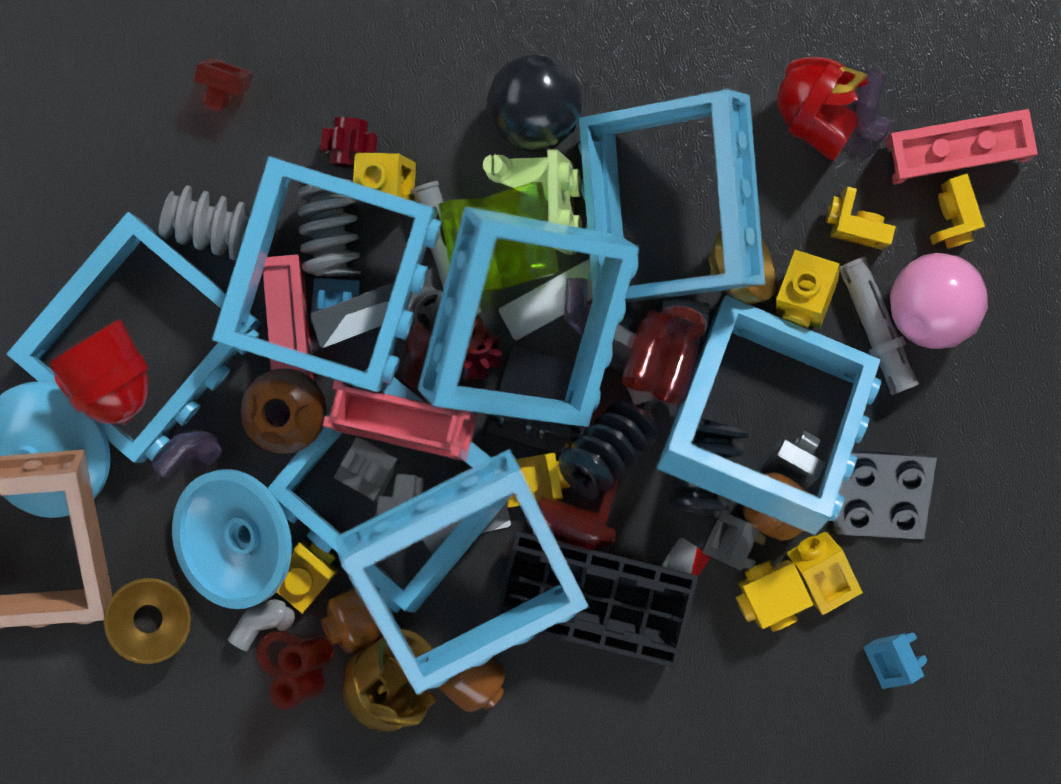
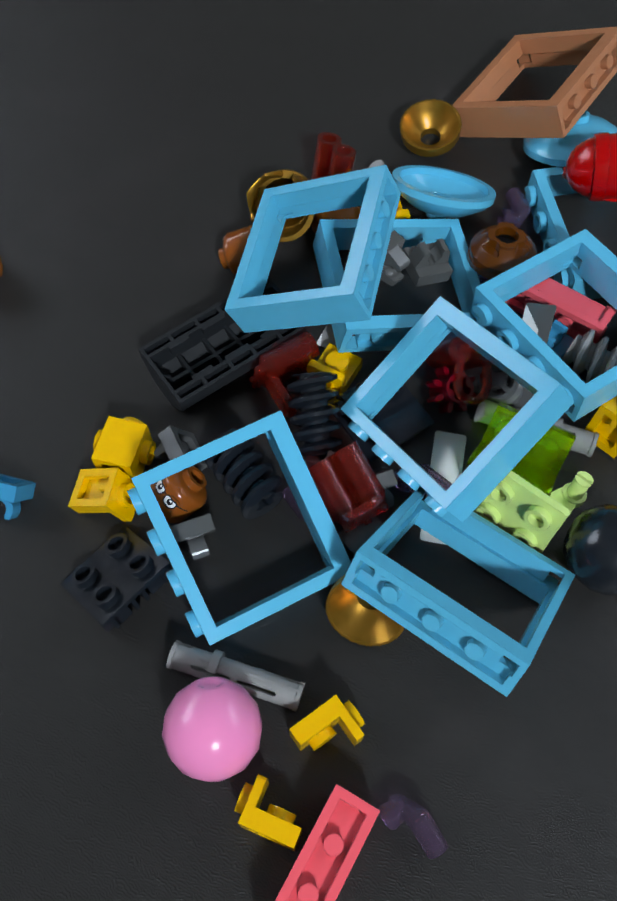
camera: 130 degrees right, 25 degrees down
(401, 421) = (455, 286): coral container -> none
(686, 558) = (198, 422): light grey sticker -> none
(807, 290) = (307, 636): yellow brick -> none
(816, 100) = (449, 769): red helmet -> none

